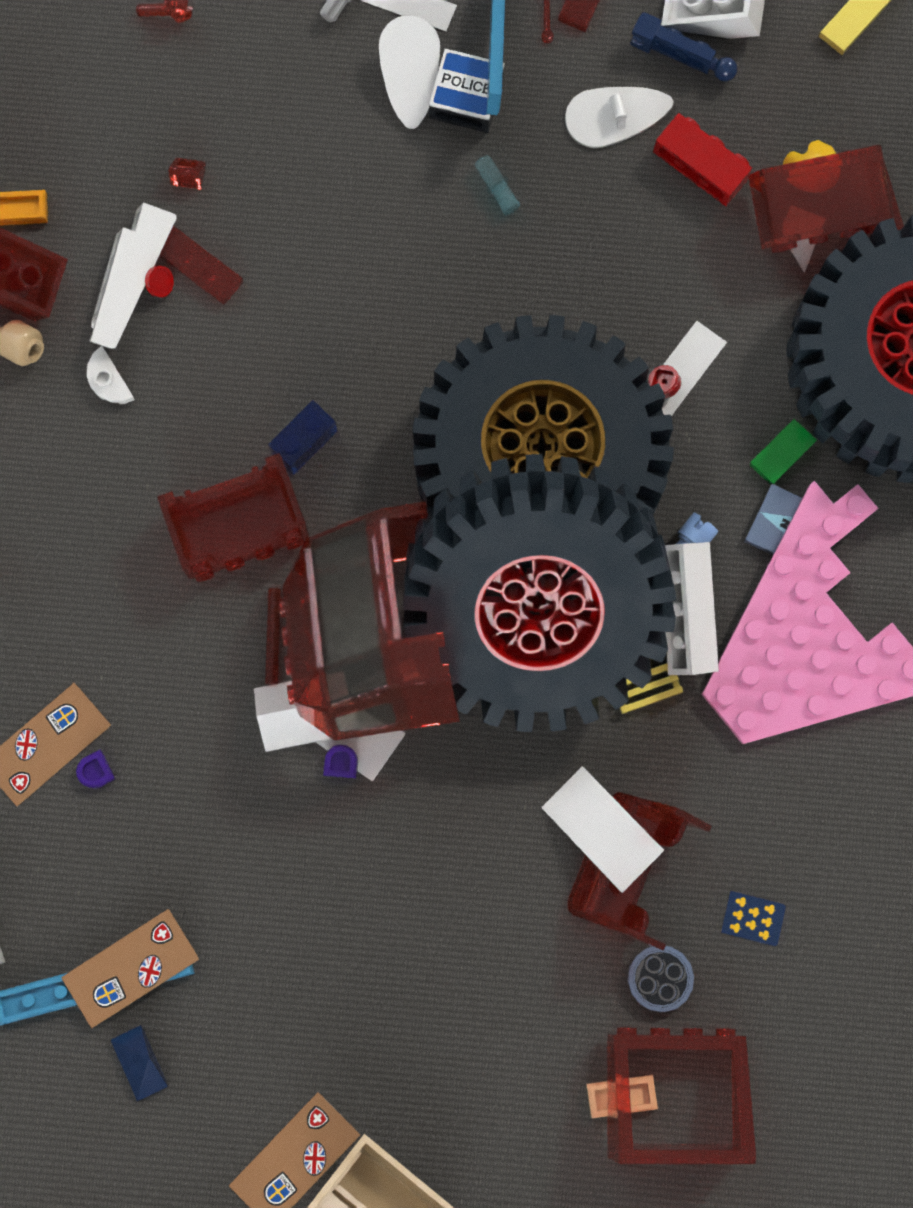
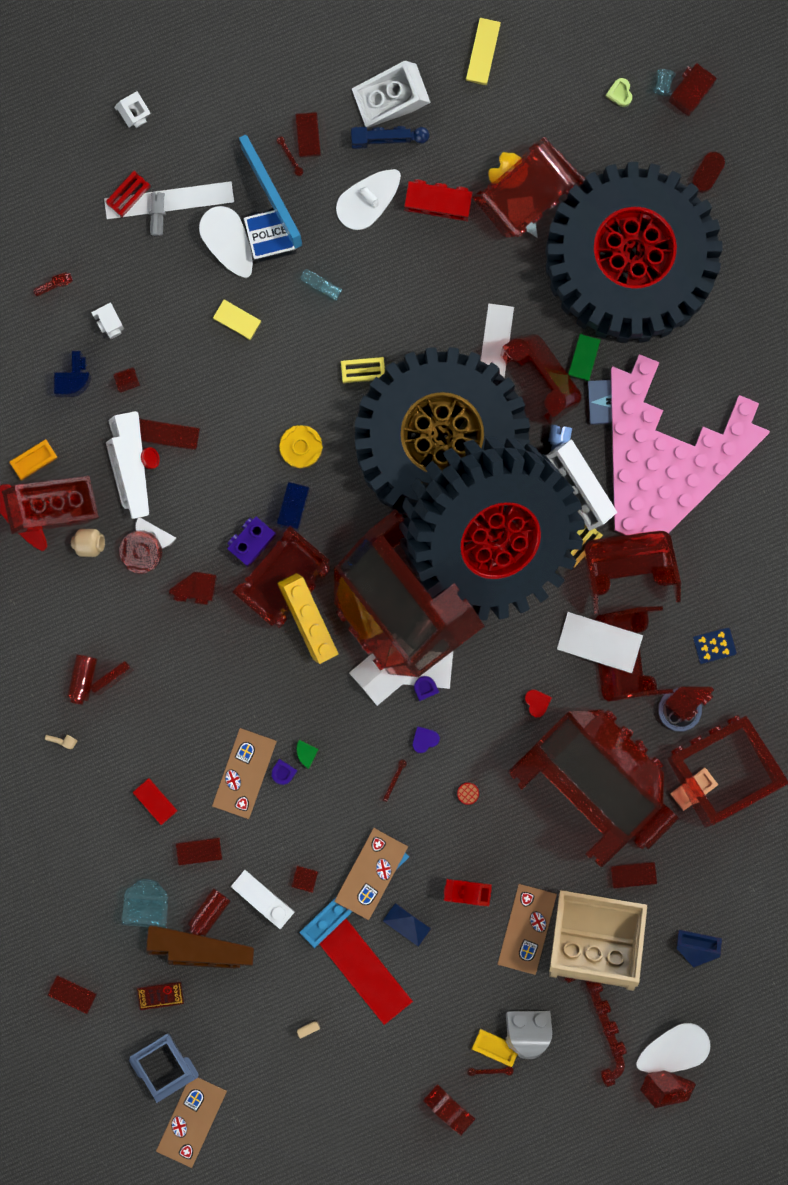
camera: 30 degrees left, 5 degrees up
(41, 926) = (305, 879): none -> clear red tile
(49, 1096) = (365, 972): none -> red sticker
(78, 389) = (140, 552): none -> clear red tile
(121, 139) = (75, 382): none -> clear blue brick
(122, 471) = (196, 586): none -> clear red slope
(138, 762) = (306, 753): none -> green tile
(206, 87) = (108, 321): none -> white brick
(224, 452) = (251, 541): none -> dark purple brick
(237, 587) = (308, 618): none -> yellow brick
(240, 1065) = (467, 892): none -> red brick
(254, 846) = (402, 764): none -> clear red hinge
(273, 634) = (342, 635): clear red bar -> none
(302, 829) = (424, 739): none -> dark purple tile
(318, 933) = (468, 793): none -> tile
(357, 370) = (300, 446): none -> yellow tile
(367, 172) = (237, 319): none -> light yellow tile
(476, 864) = (537, 702): none -> red tile
(477, 1168) = (633, 875): none -> clear red tile
(489, 304) = (362, 370): none -> light yellow tile
(501, 1006) = (600, 774): none -> windscreen
(540, 1119) = (655, 828): none -> clear red brick
(667, 378) = (490, 353): tile -> none
(675, 970) = (686, 700): none -> clear red slope
(705, 739) = (630, 557): none -> clear red windscreen
(730, 481) = (564, 393): none -> clear red windscreen

